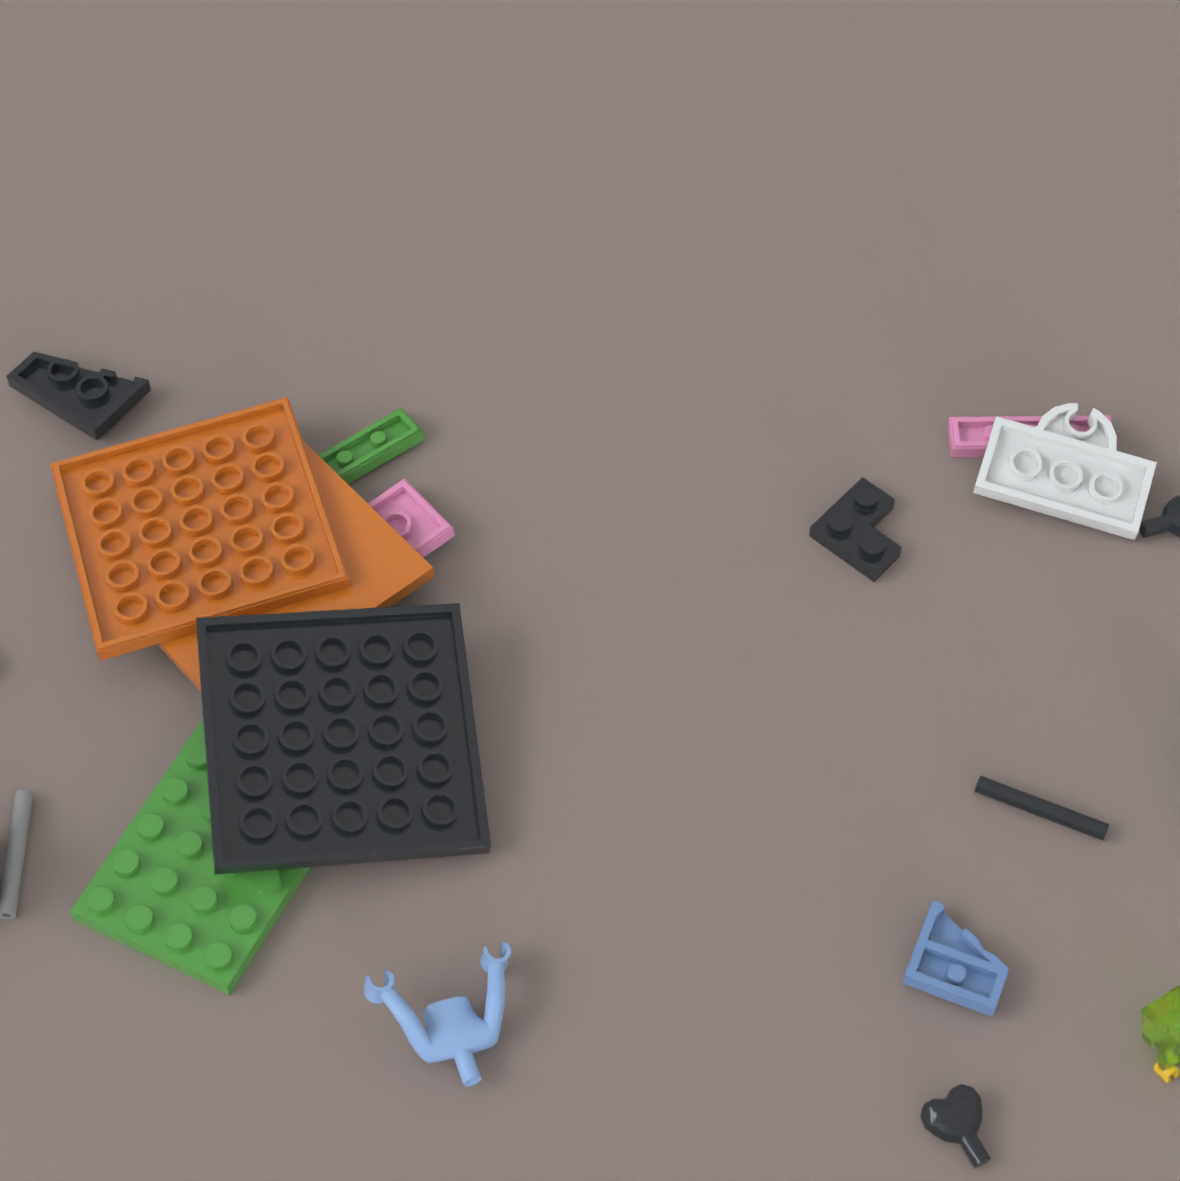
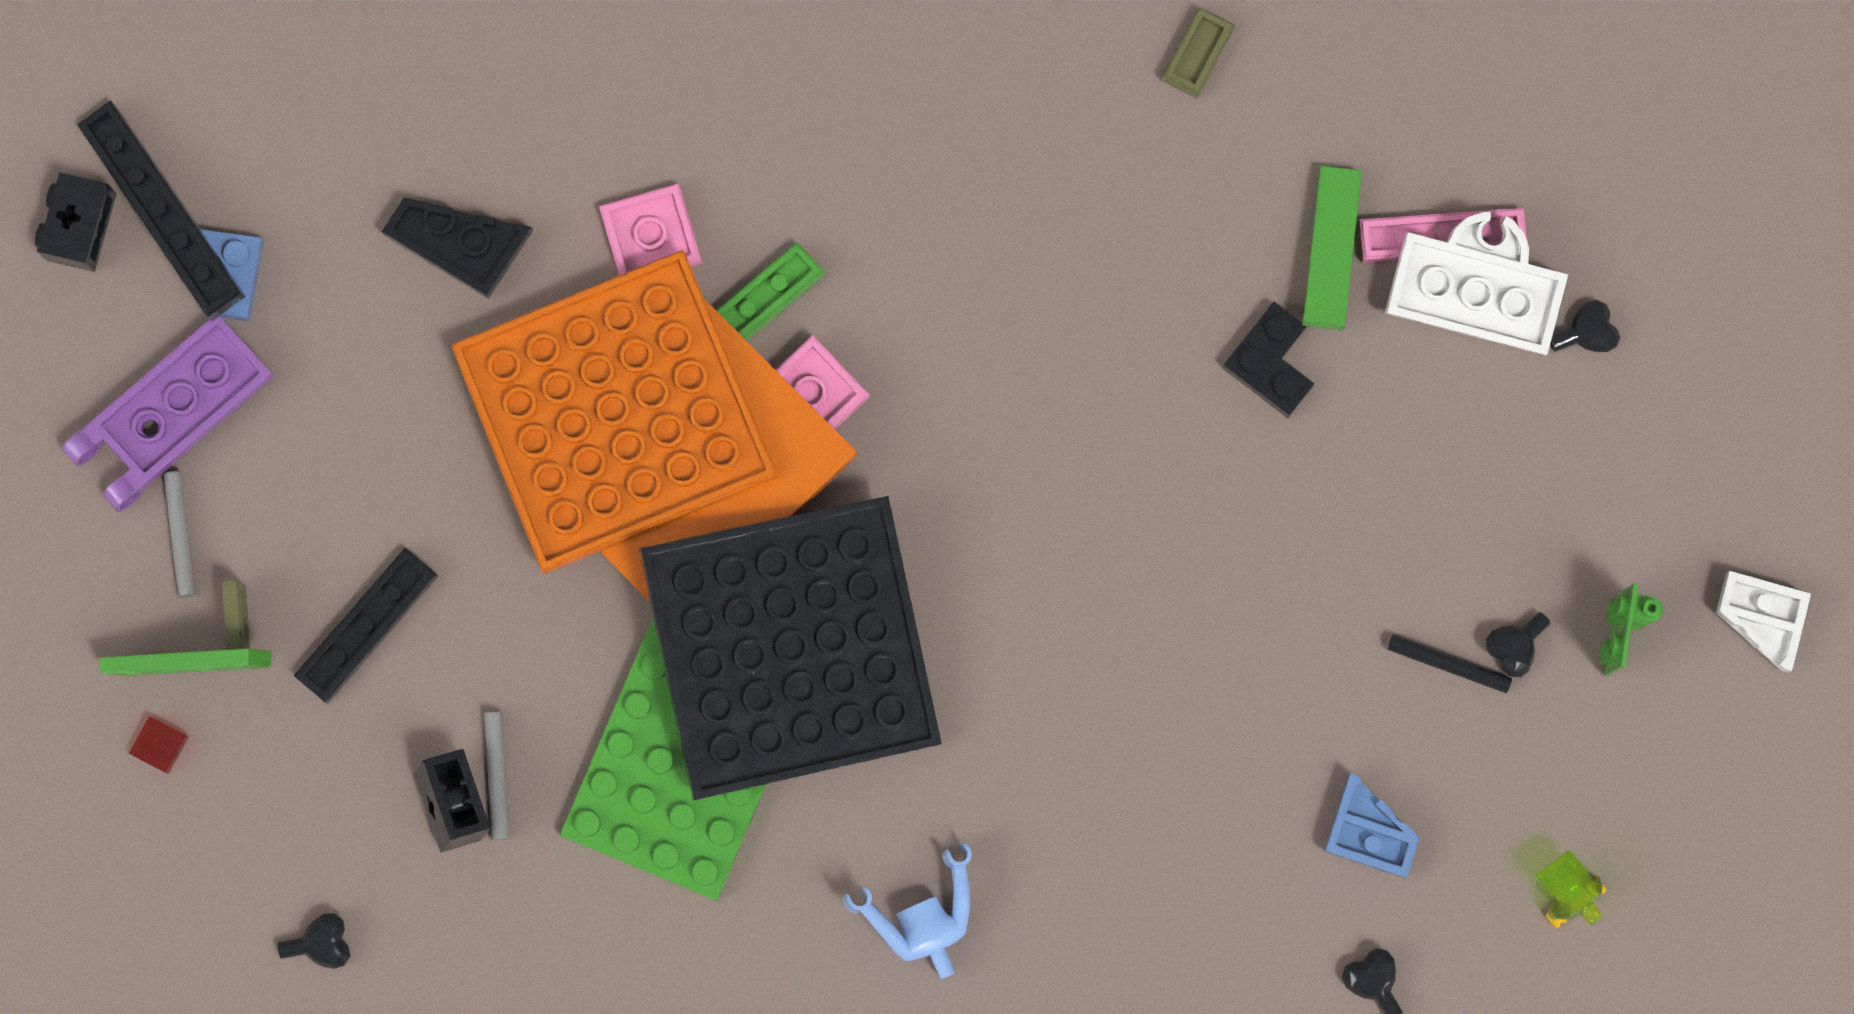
camera: 10 degrees left, 25 degrees up
(261, 384) = (649, 228): none -> bright pink tile
(797, 285) = (1198, 52): none -> olive tile
(920, 438) = (1331, 248): none -> bright green tile
(1113, 792) = (1516, 645): none -> black rock

